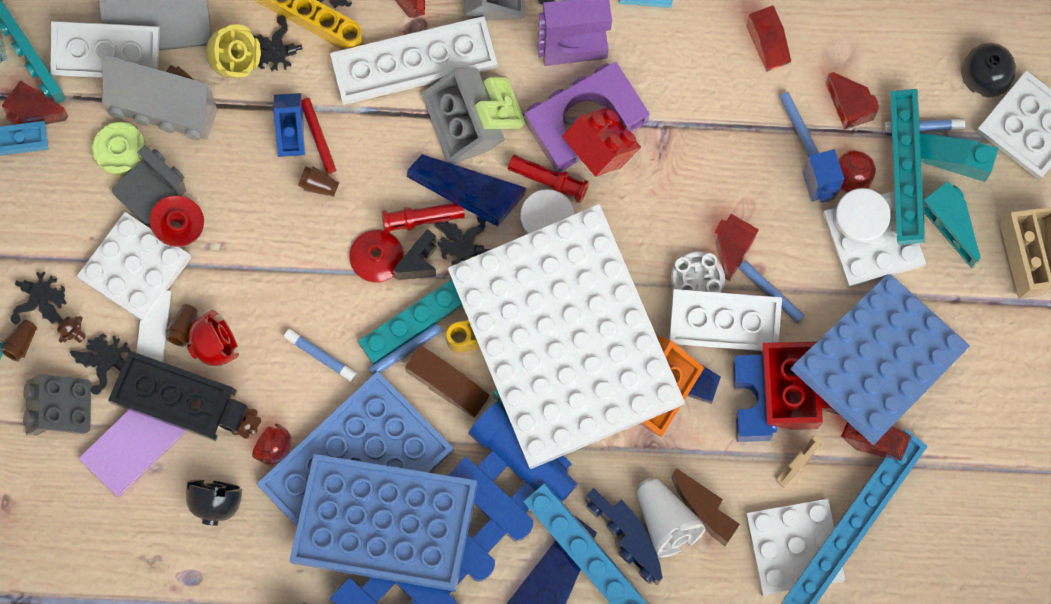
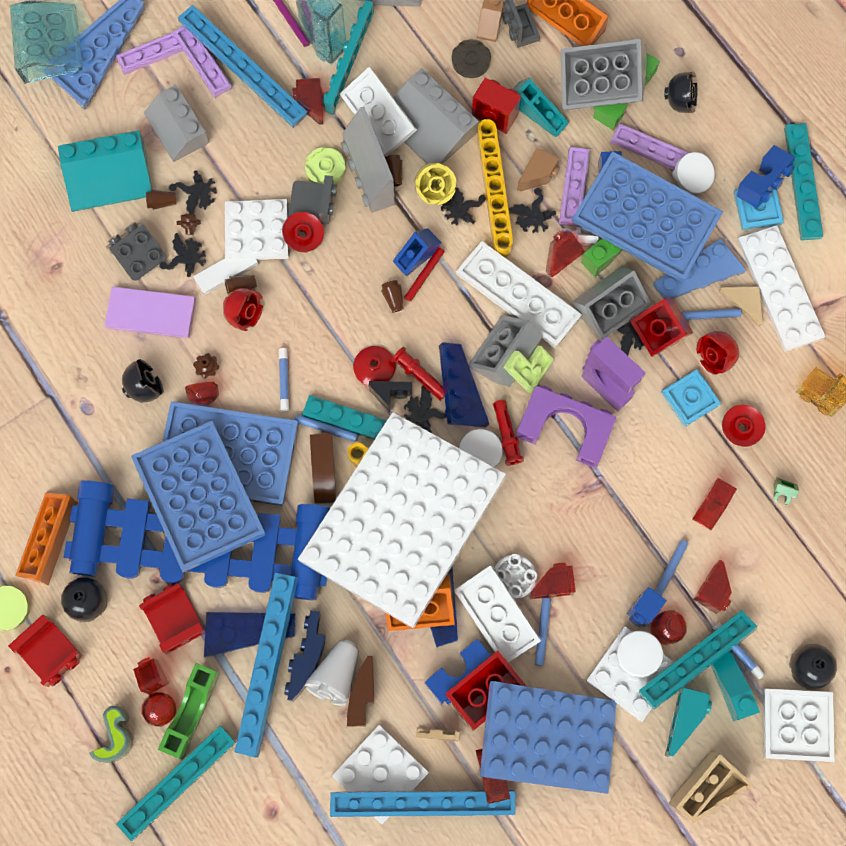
camera: 55 degrees right, 0 degrees up
(167, 396) = (189, 306): black hinge -> none
(601, 141) = (554, 447): red brick -> none

